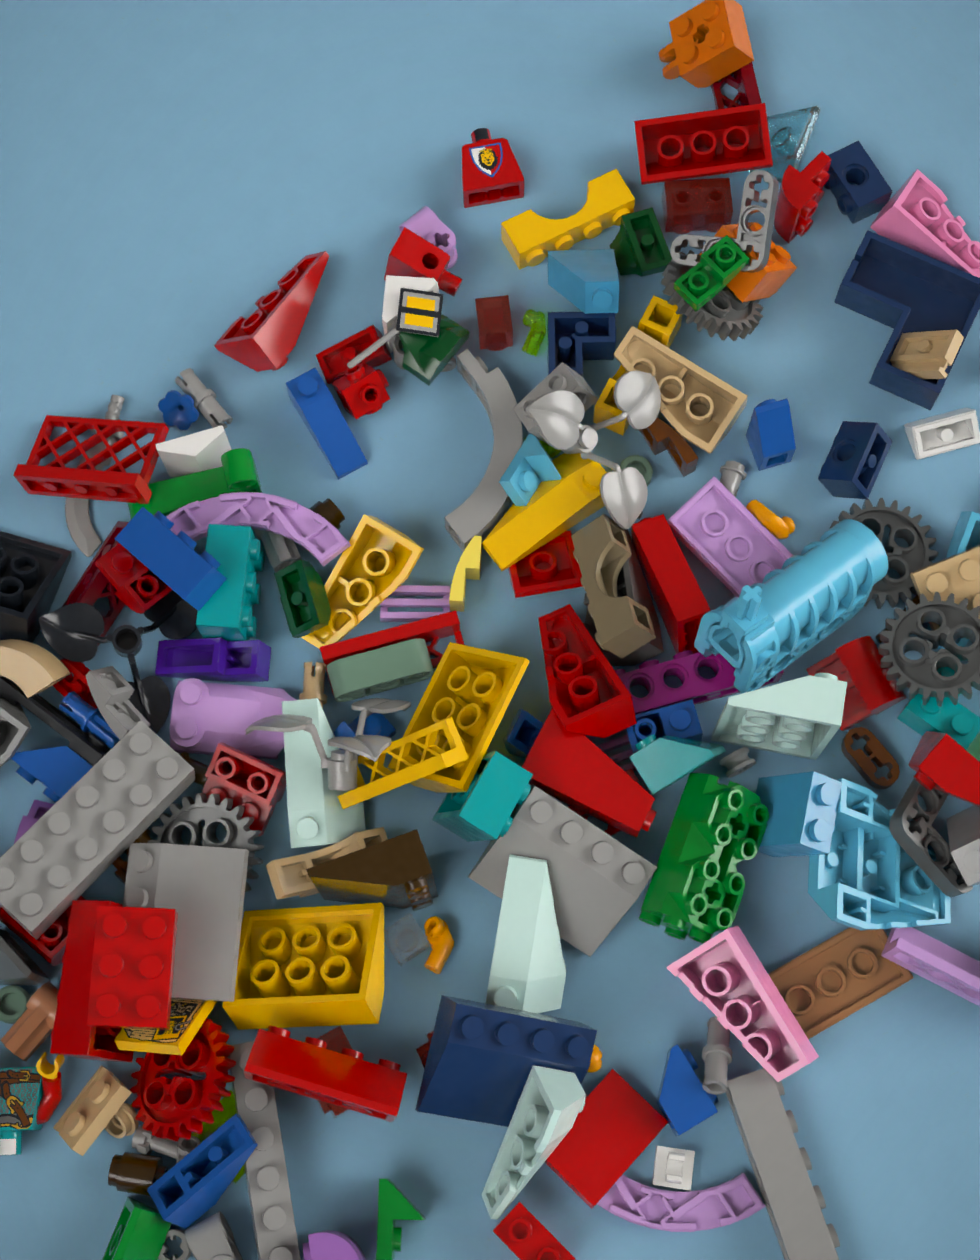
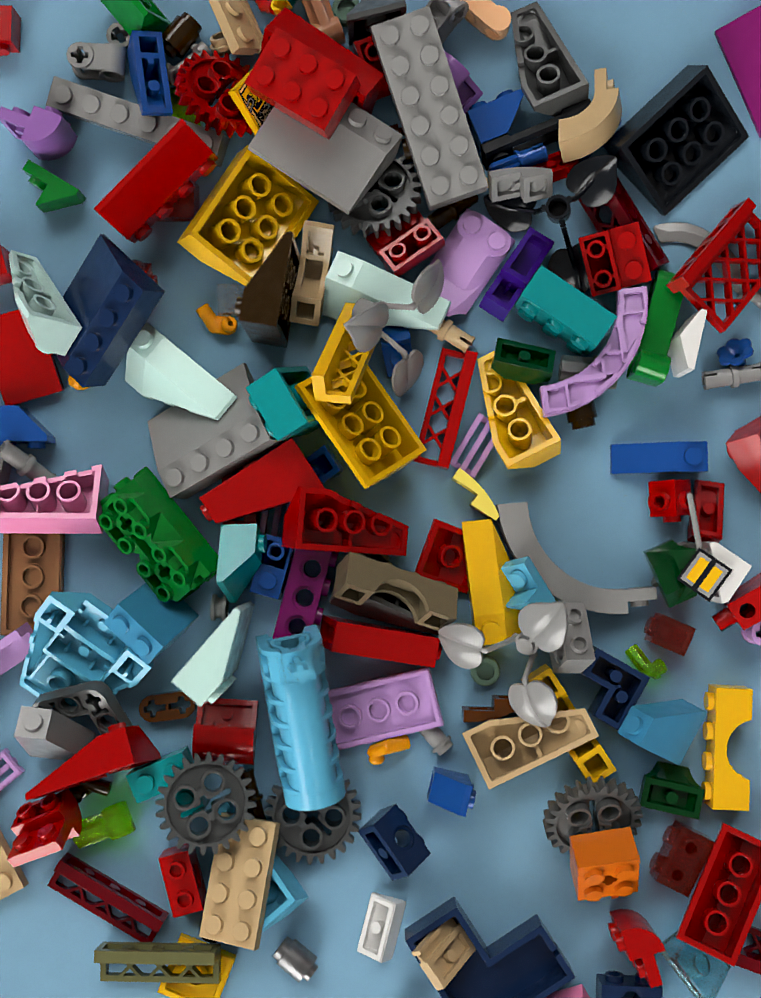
camera: 120 degrees right, 15 degrees up
(172, 557) = (603, 272): blue brick -> none
(380, 670) = (436, 388): sand green beam -> none
(712, 273) = (602, 823): green slope -> none
(746, 238) = (615, 869): beam -> none

